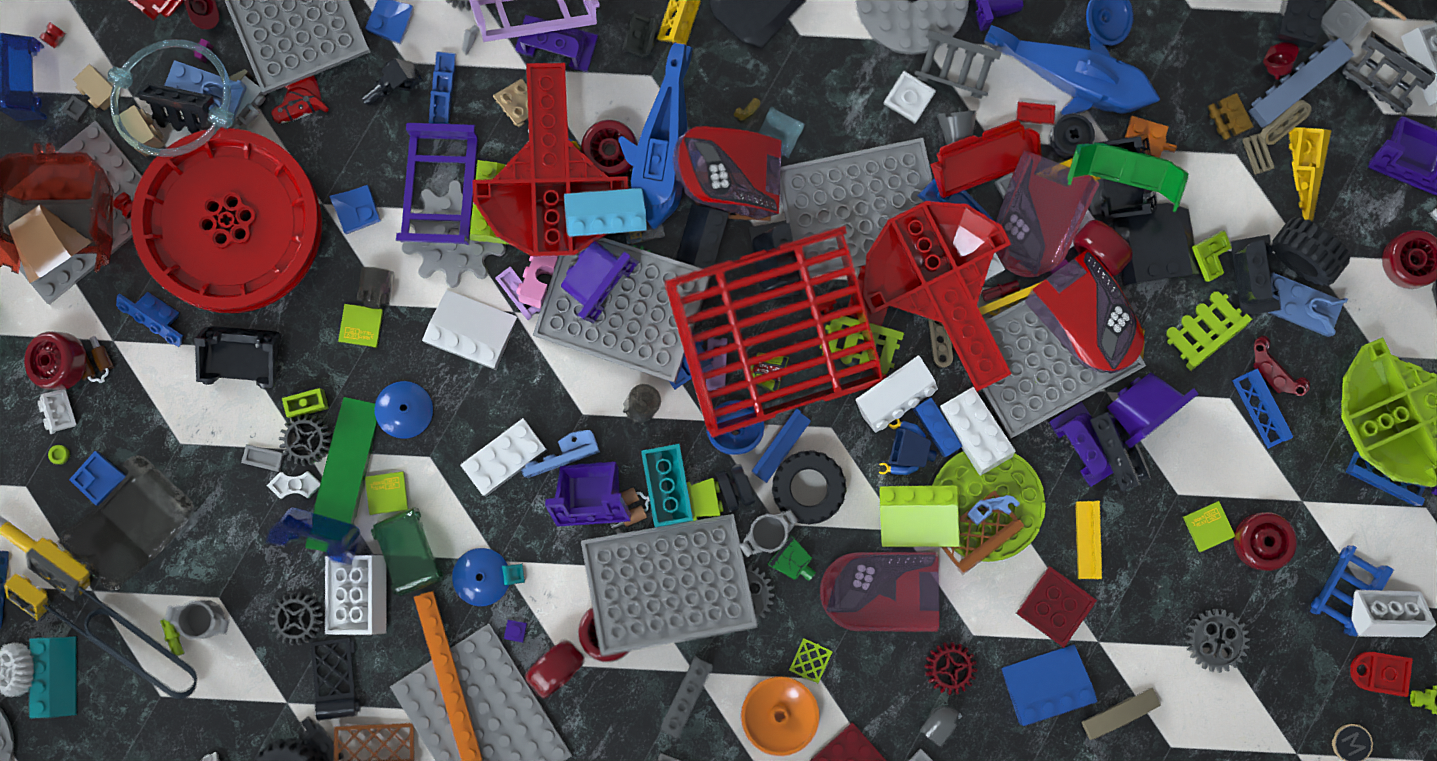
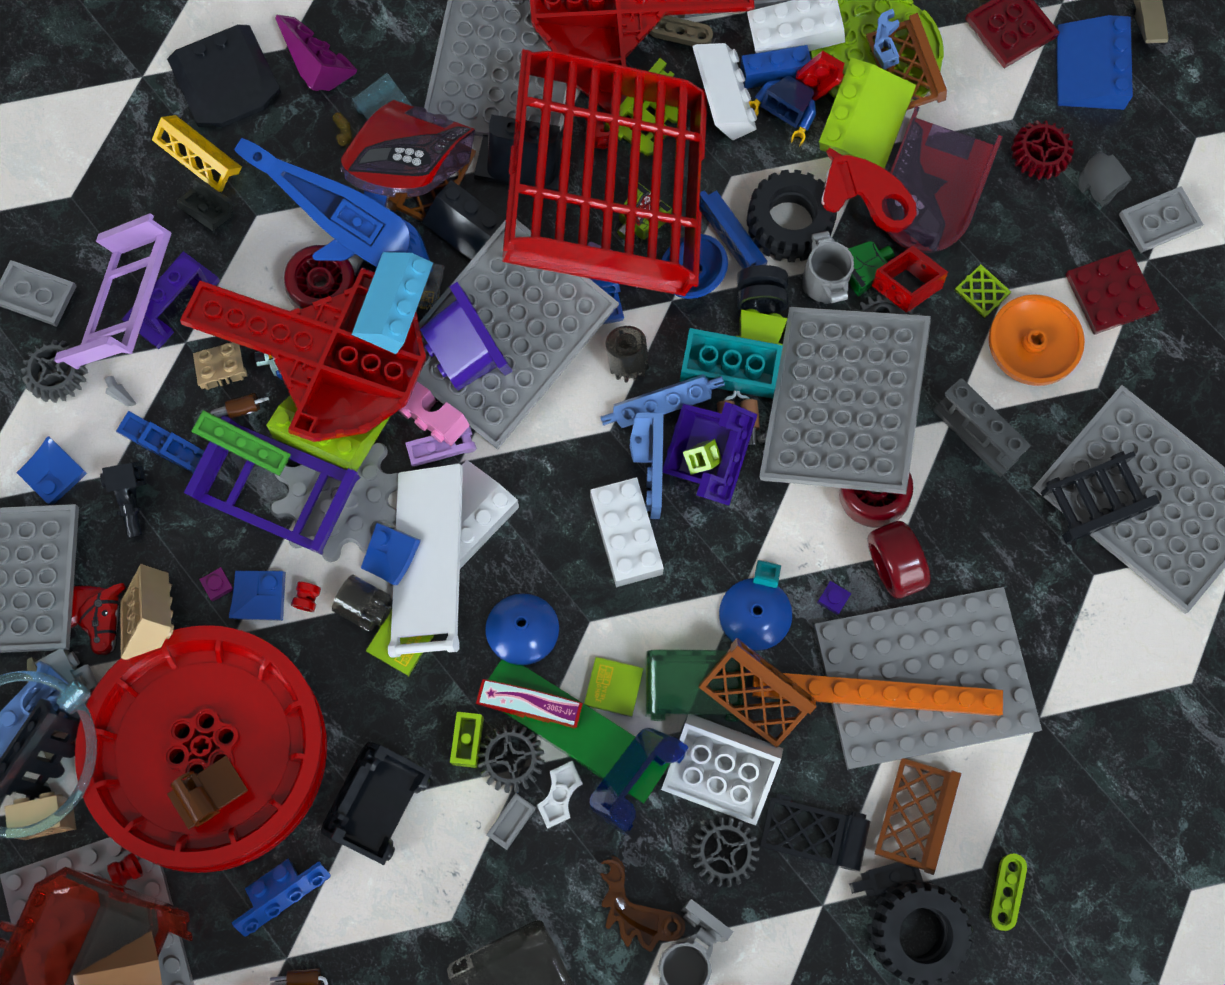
camera: 65 degrees left, 10 degrees down
(190, 238) = (205, 793): none -> reddish brown piece
(226, 573) = (634, 919): none -> reddish brown animal
(241, 617) = (699, 916): none -> light grey plate
(305, 137) = (145, 612): none -> tan slope
(345, 437) = (529, 703): none -> slope
(353, 175) = (216, 584): none -> magenta plate
(367, 244) = (306, 596): none -> red wheel
(419, 291) = (389, 553): none -> blue plate
(424, 320) = (429, 591): none -> white flag
(425, 605) = (773, 678): none -> dark orange fence
(458, 148) = (241, 443): none -> bright green tile
(489, 133) = (240, 406): none -> reddish brown piece
(580, 492) = (702, 456): none -> lime brick
(615, 445) = (663, 400): none -> medium blue plate
(796, 64) = (312, 56): none -> magenta wedge
(807, 604) = (913, 261): none -> red window
(855, 525) = (857, 176): none -> red animal
(939, 468) = (821, 74): none -> red bracket

